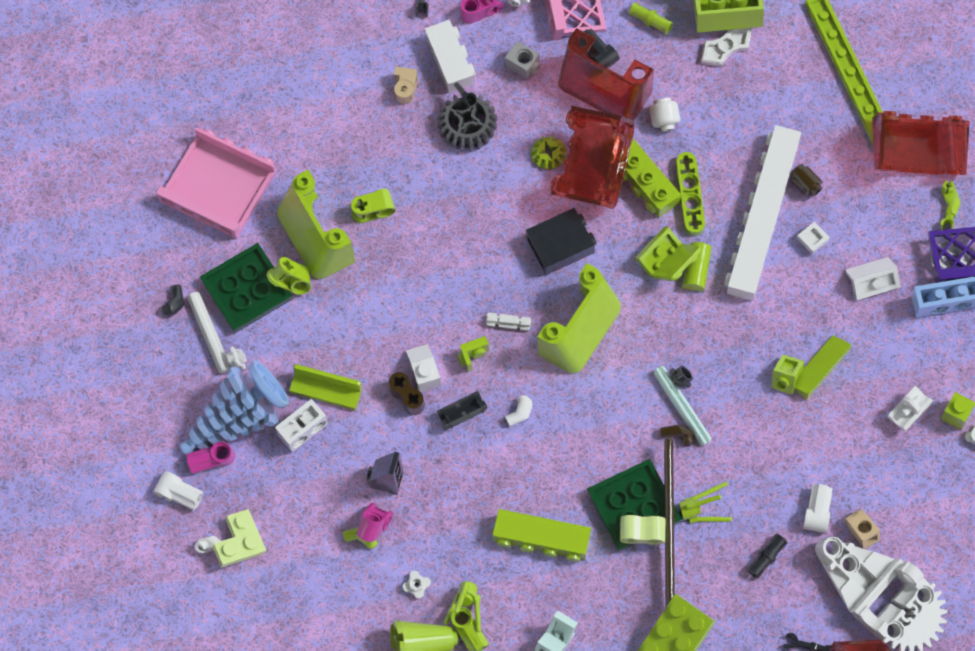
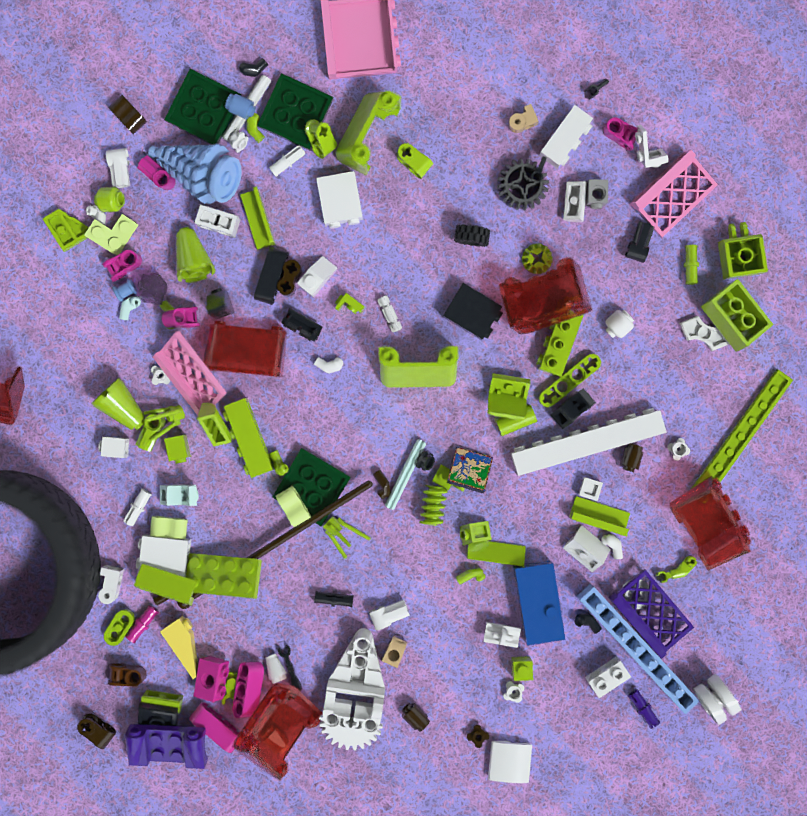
camera: 55 degrees right, 20 degrees up
(132, 449) = (127, 114): none -> dark brown axle
(178, 372) = (201, 108): none -> dark green plate
(201, 584) = (65, 229): none -> lime wing
(203, 520) = (109, 199): none -> lime head
(205, 331) = (240, 106): none -> medium blue brick
(231, 338) = (252, 128): none -> lime arm
(277, 554) = (119, 266): none -> dark pink piece
(288, 325) = (287, 160): none -> white axle
(304, 563) = (125, 289): none -> medium blue bush
(319, 473) = (191, 257): none -> lime cone
(322, 571) = (128, 305): none -> light aqua arm
(323, 533) = (152, 288): none -> clear purple brick
(362, 297) = (339, 199): none -> white brick
(392, 409) = (270, 275): none -> black beam
(438, 561) = (181, 376): none -> bright pink fence
(449, 480) = (245, 349): none -> clear red windscreen
(485, 194) = (472, 235): none -> black tyre
(505, 613) = (177, 448): none -> lime brick
(506, 552) = (214, 425): none -> lime brick
(517, 84) = (575, 201): none -> white brick
(595, 521) = (279, 467): none -> lime arm
(601, 86) = (608, 281): clear red windscreen -> none
(712, 368) = (442, 476): none -> lime plate
(718, 338) = (470, 470): none -> tile
(719, 203) = (572, 408): none -> black brick
(731, 395) = (433, 505): none -> lime piece
(827, 128) = (684, 450): none -> white plate
(827, 404) = (469, 574): none -> lime arm
(847, 246) = (600, 516): none -> lime panel
(880, 249) = (615, 544): none -> white arm
(899, 353) = (539, 603): none -> blue brick
(945, 549) = (415, 717): none -> dark brown brick
(948, 320) = (587, 620): none -> black arm

